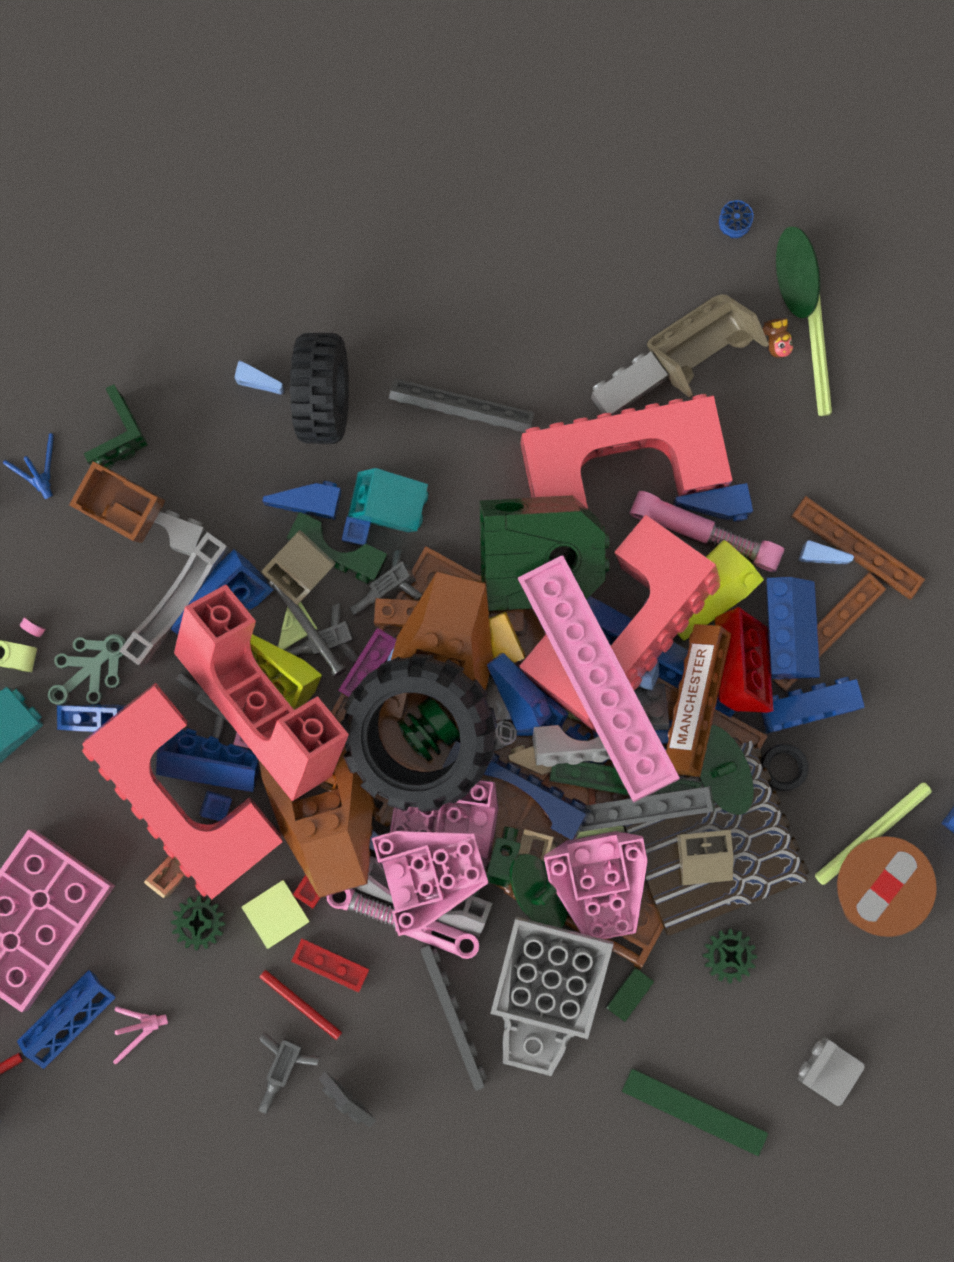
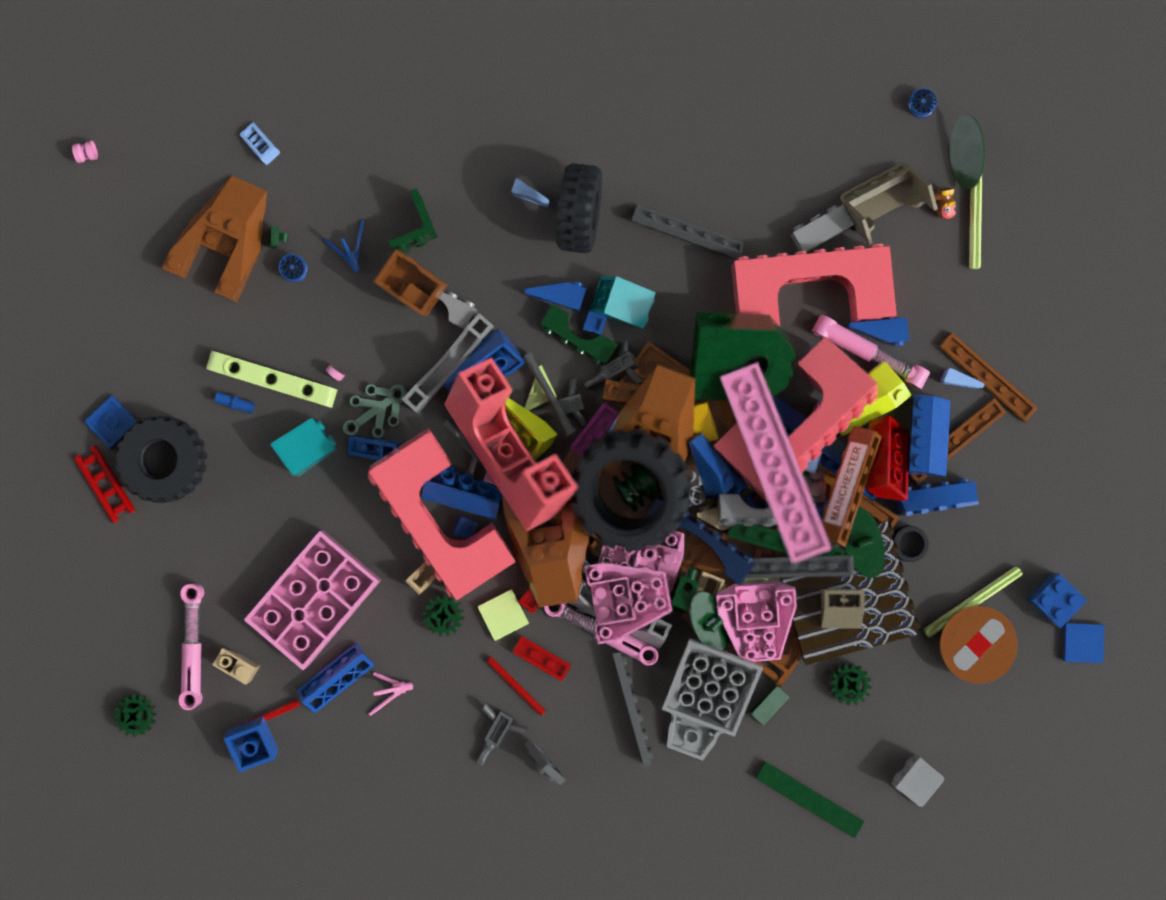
camera: 10 degrees right, 5 degrees up
(298, 567) = (547, 348): dark tan slope -> none

